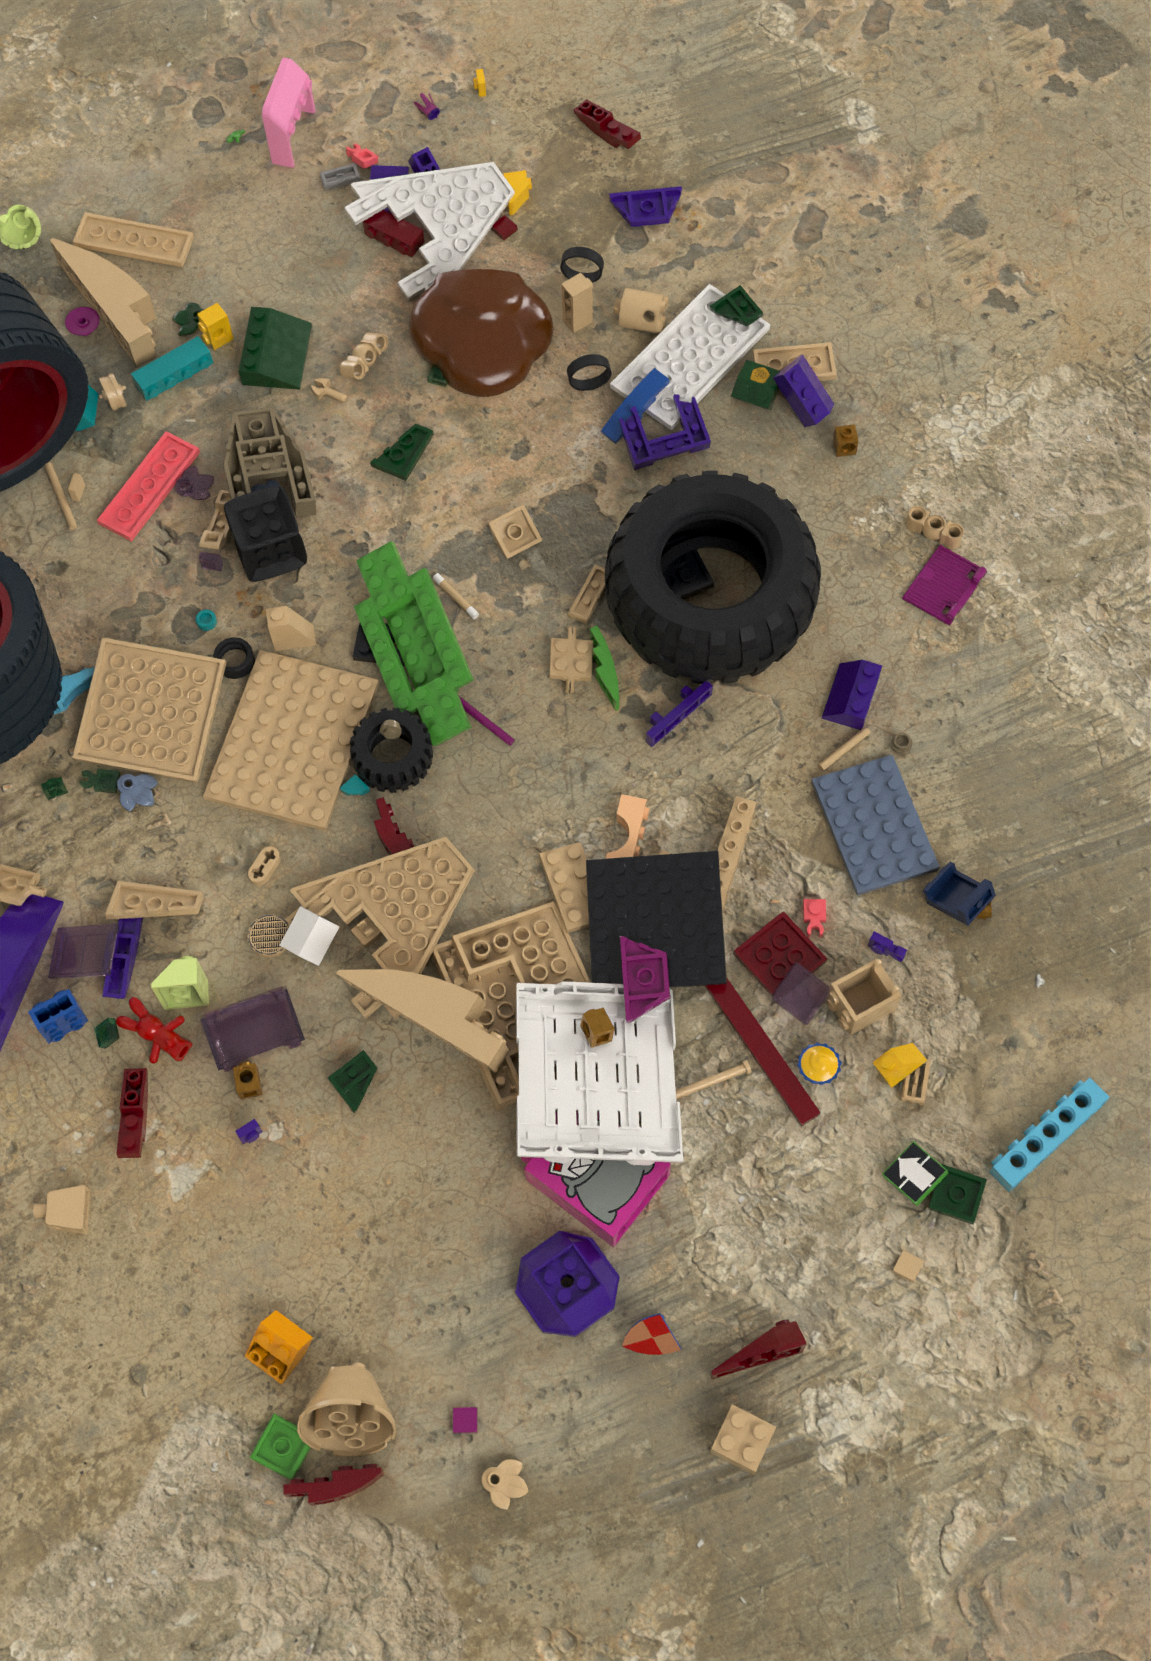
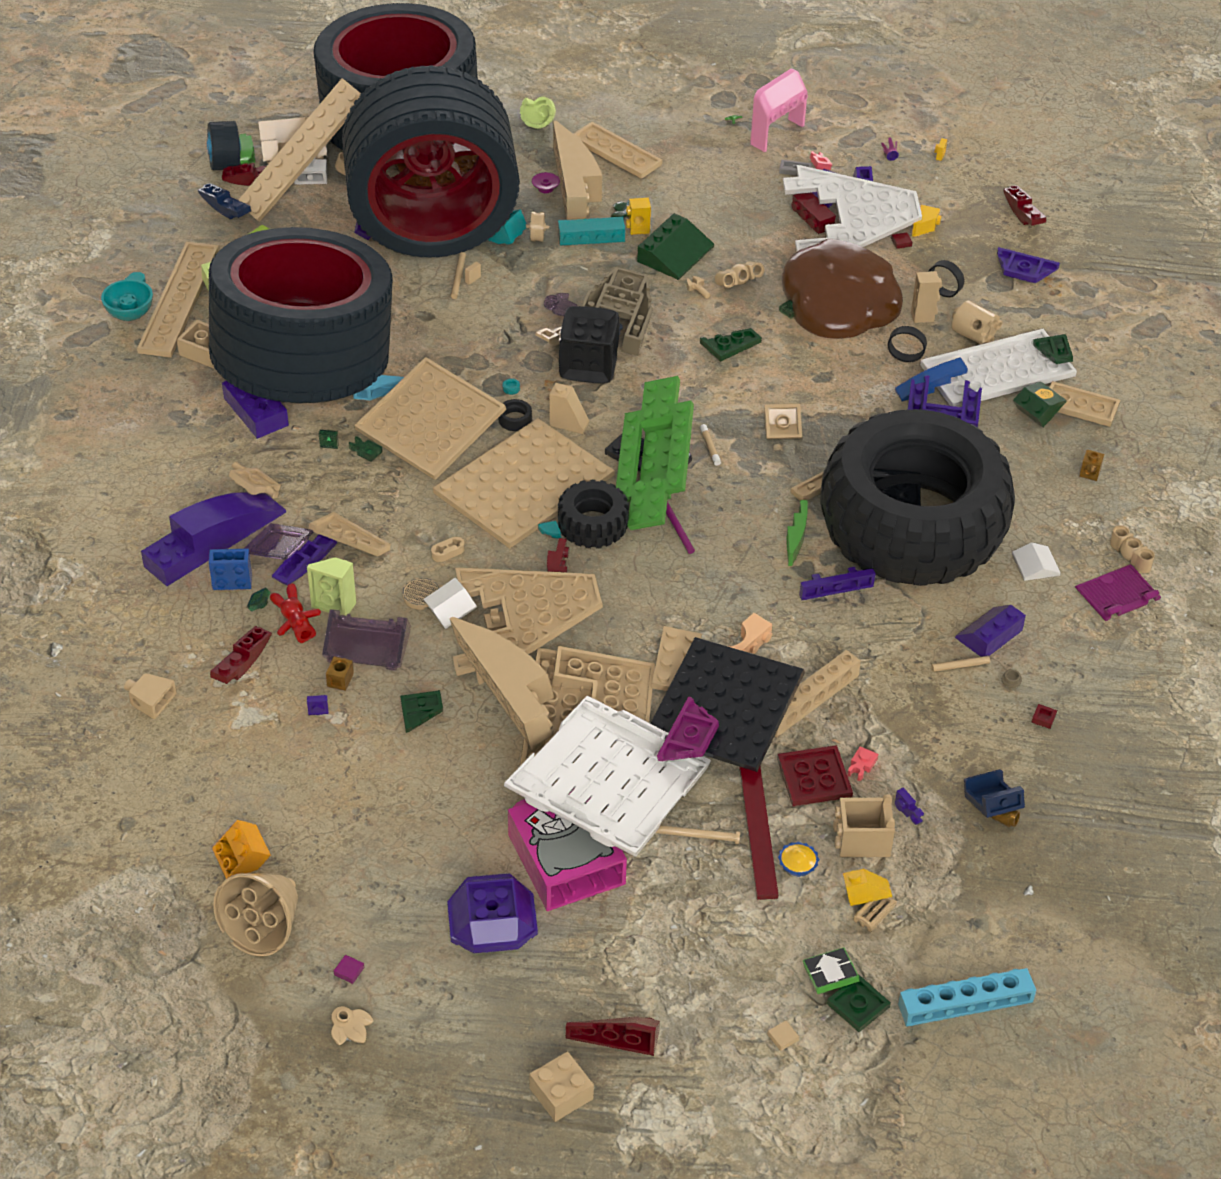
camera: 25 degrees right, 20 degrees down
(138, 793) = (387, 467): sand blue plate -> none
(148, 486) = (524, 292): coral plate -> none
(210, 561) = (539, 351): tile -> none
(281, 1448) = (195, 920): bright green tile -> none
(344, 1484) = (224, 964): dark red slope -> none
(390, 729) = (598, 492): dark tan plate -> none
(571, 659) = (772, 518): tan plate -> none
(597, 1027) = (629, 746): pearl gold brick -> none
(651, 1337) = (534, 978): shield -> none
(800, 993) = (813, 805): tile -> none
(804, 392) = (1075, 418): dark purple slope -> none
(850, 587) = (1035, 562): none -> white slope
(875, 825) = (953, 724): sand blue plate -> none
(954, 773) = (1044, 716): none -> dark red plate

